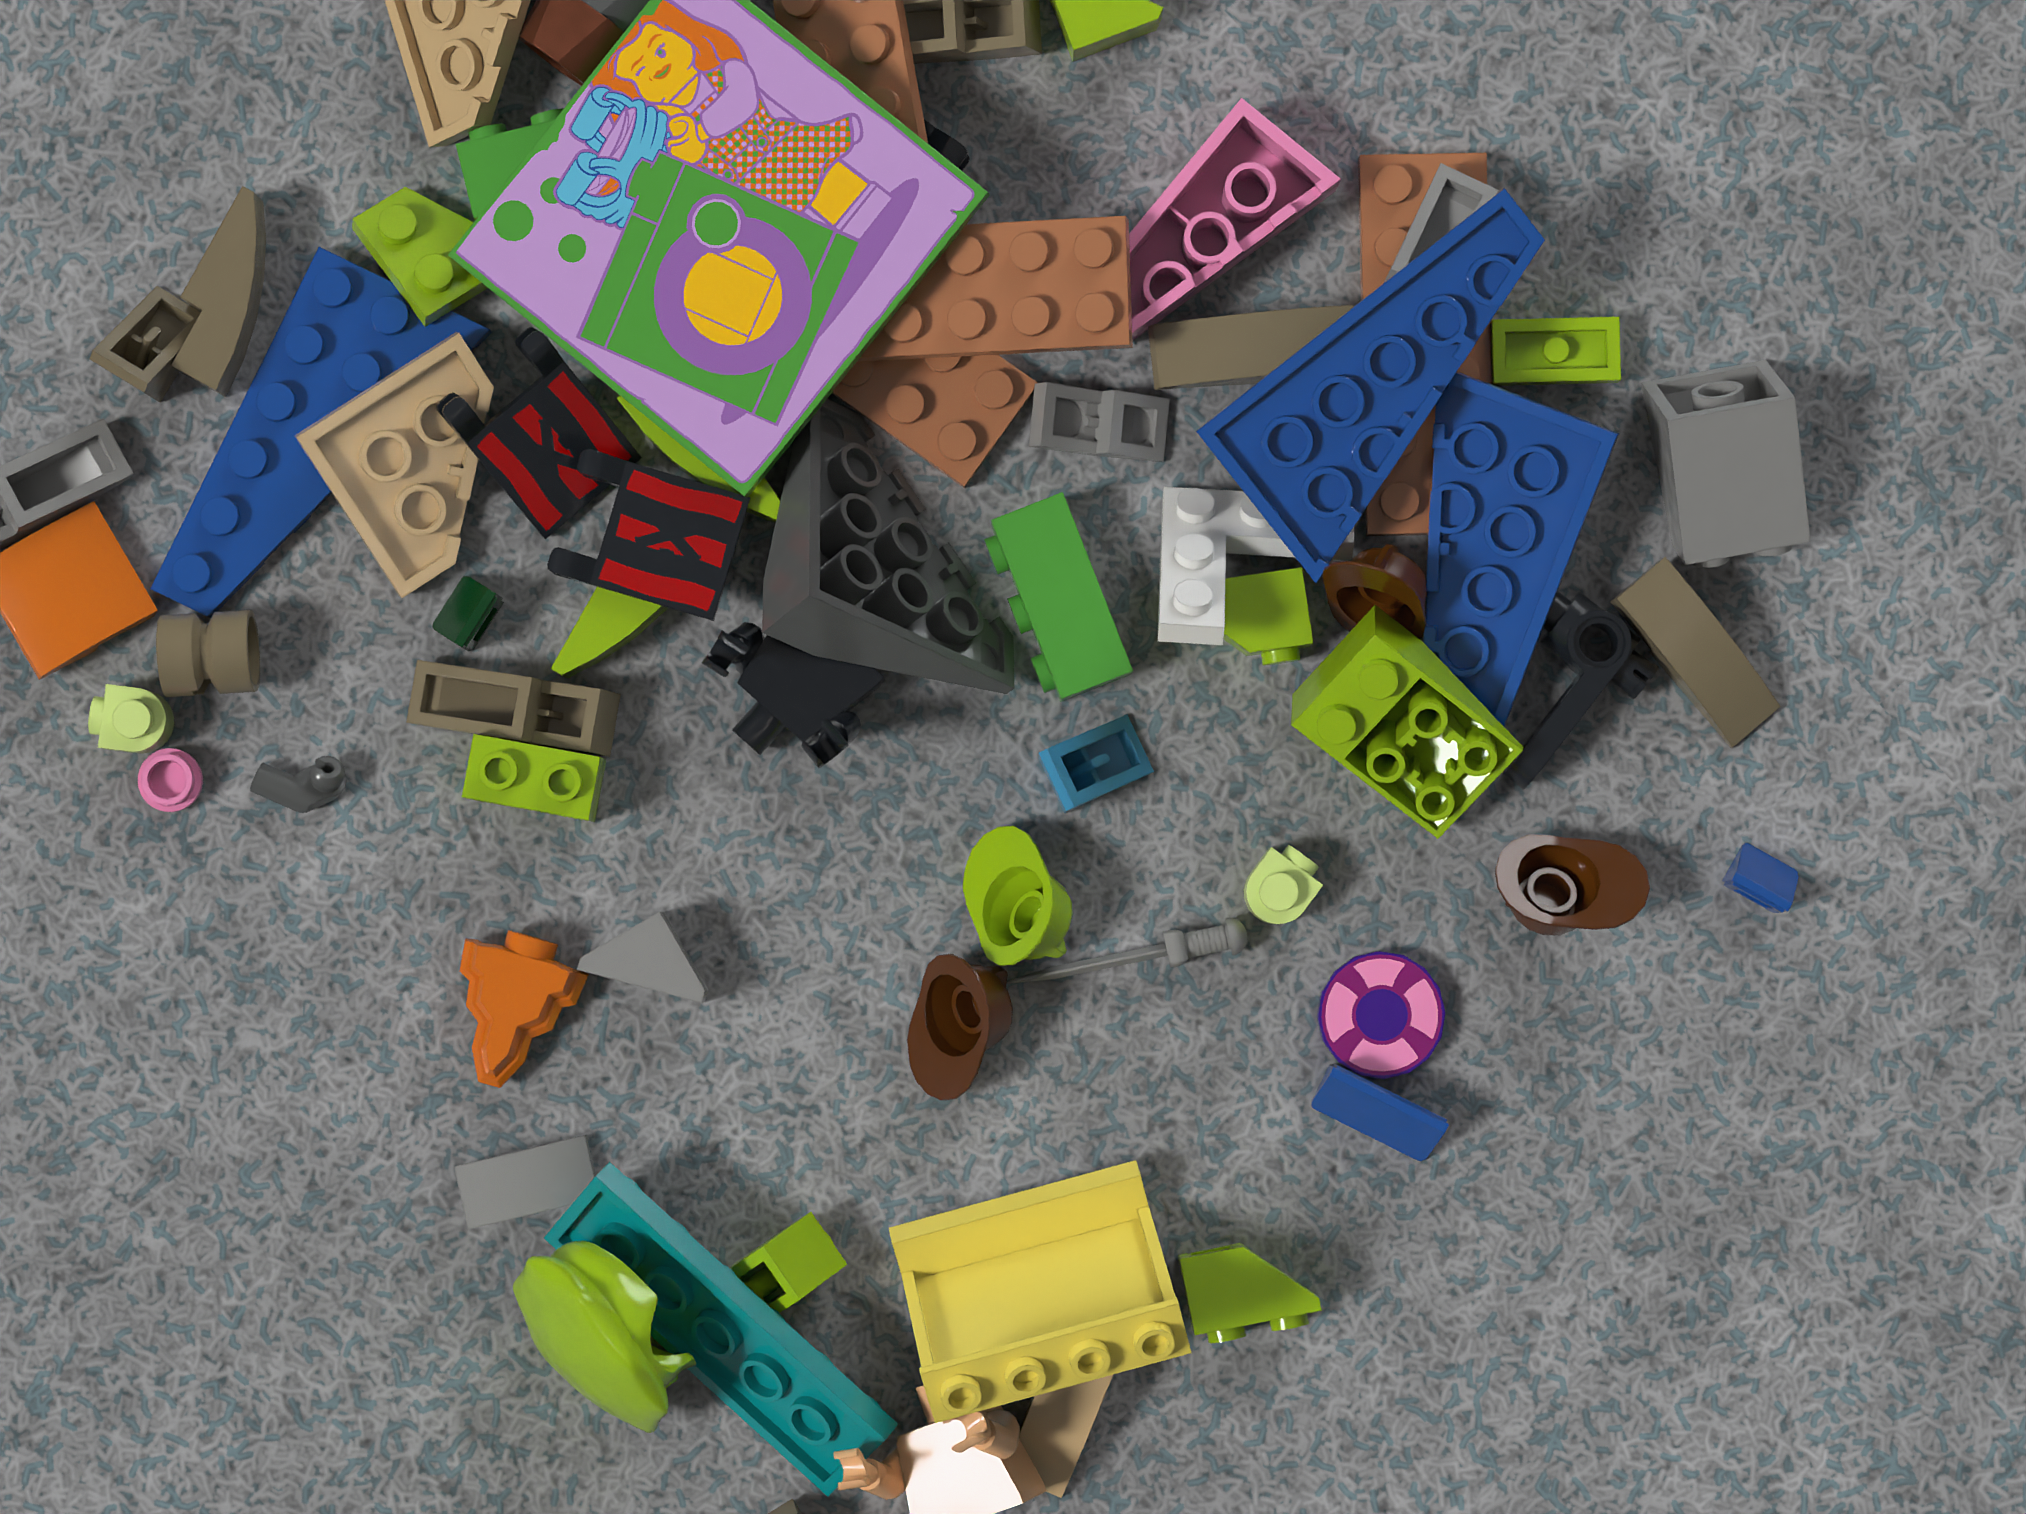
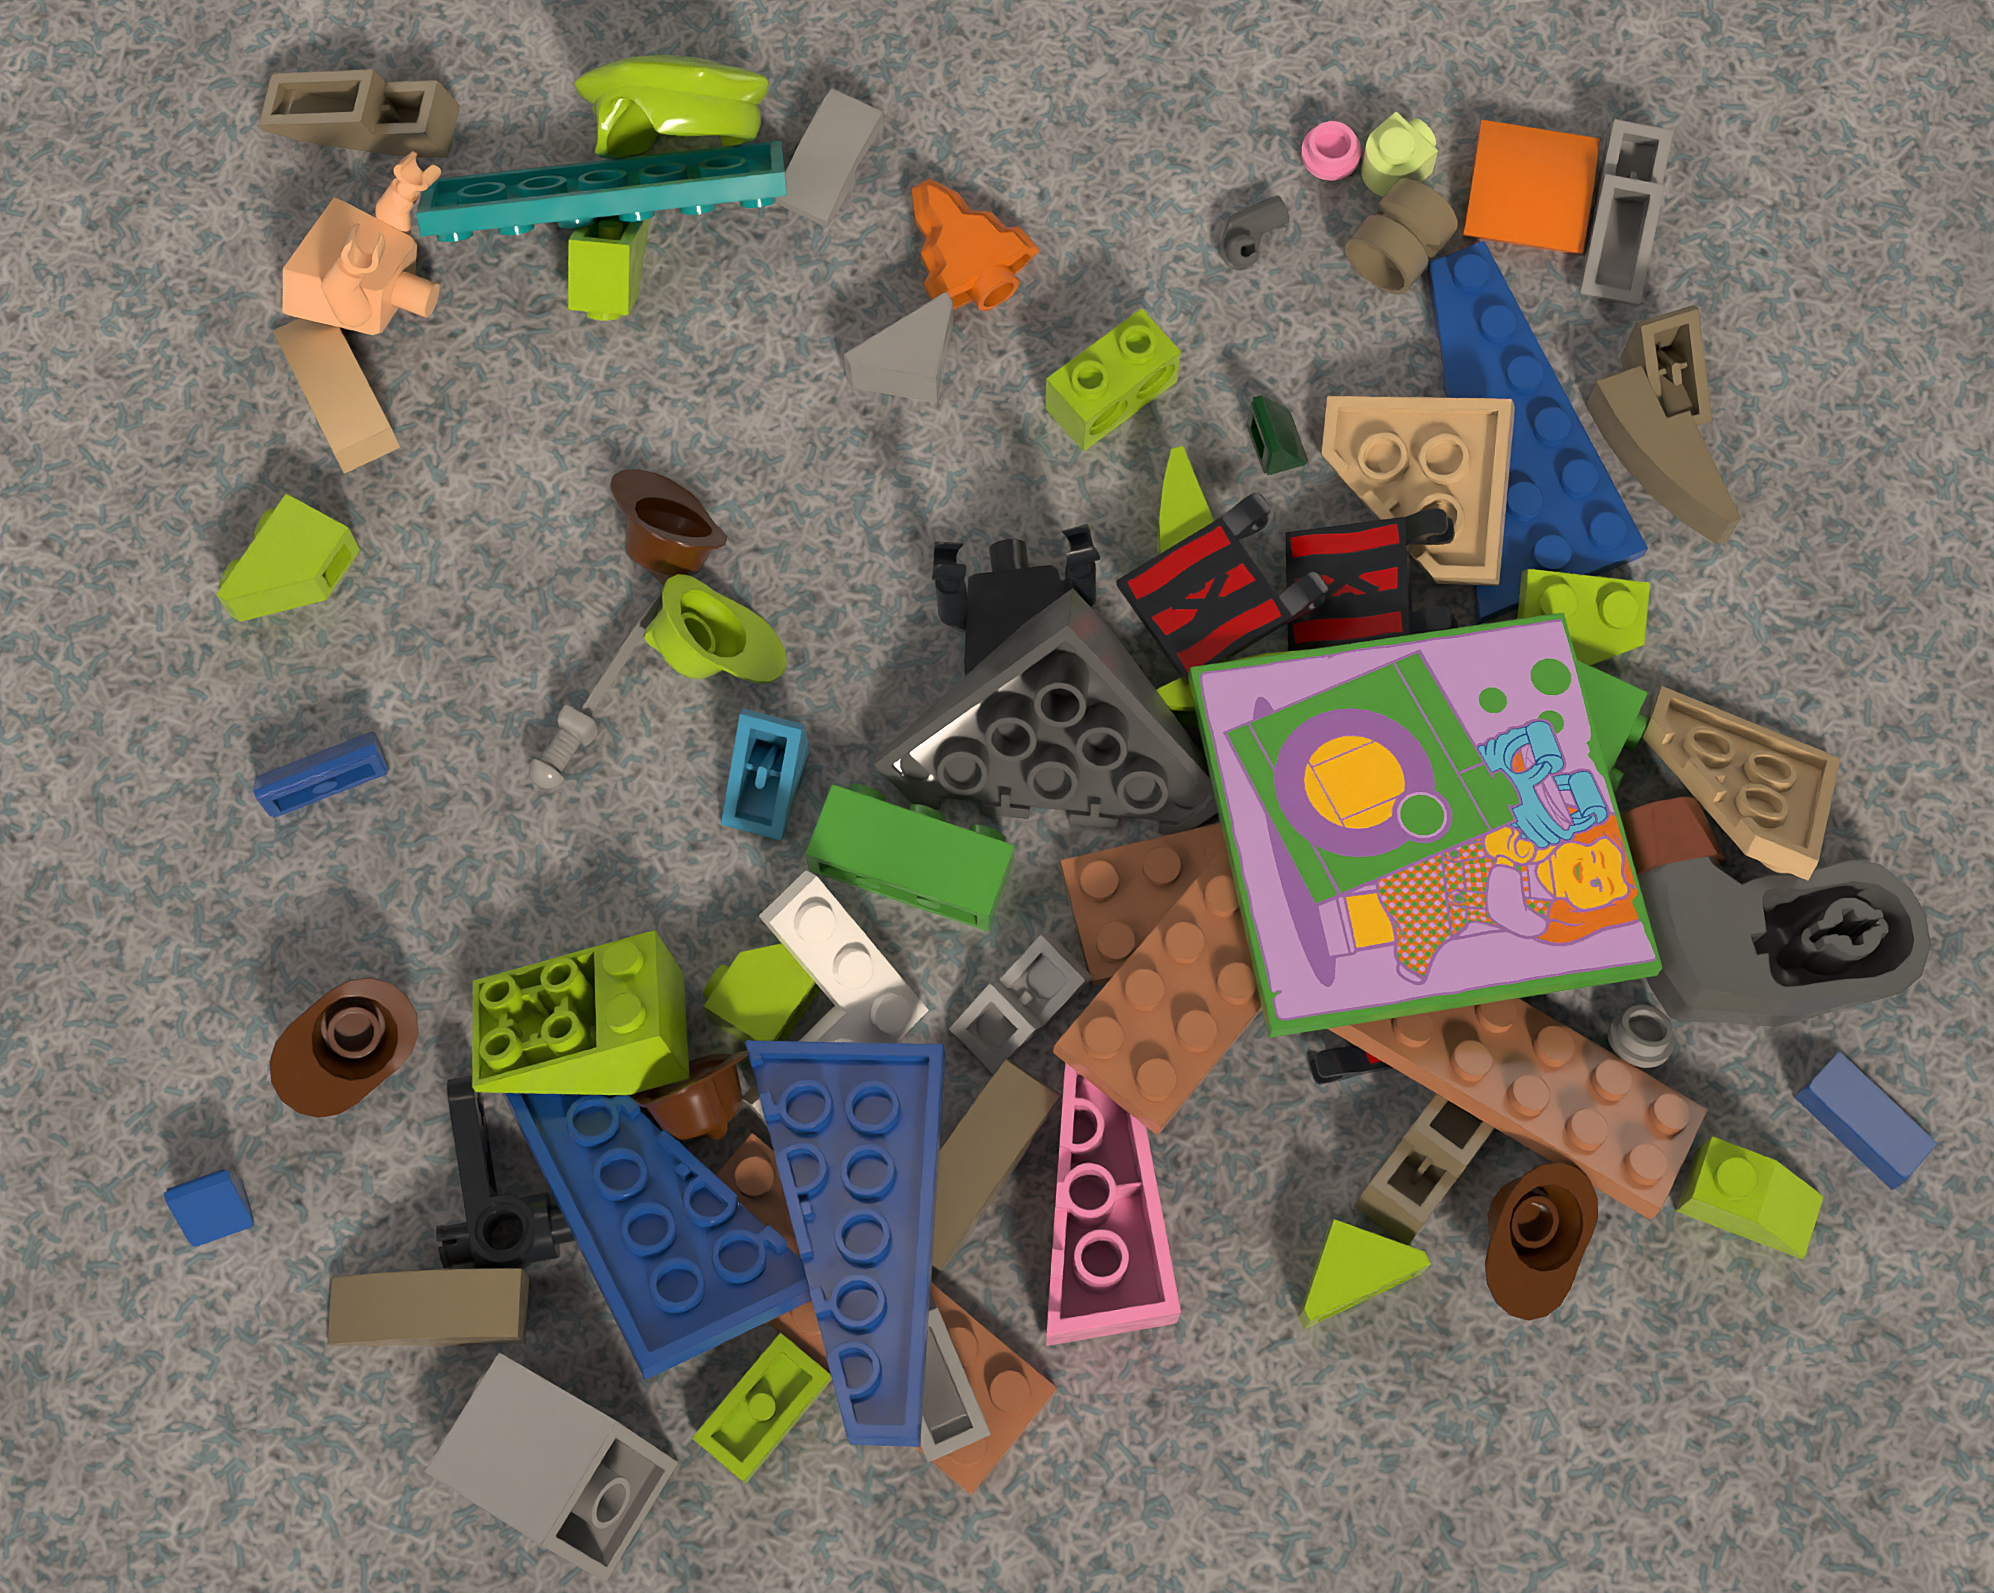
camera: 135 degrees right, 15 degrees down
(513, 707) = (1175, 411): dark tan slope -> none
(1037, 1291) = (412, 398): light yellow panel -> none
(1281, 886) = (547, 837): yellowish green plate -> none
(1381, 1014) = (387, 834): tile -> none

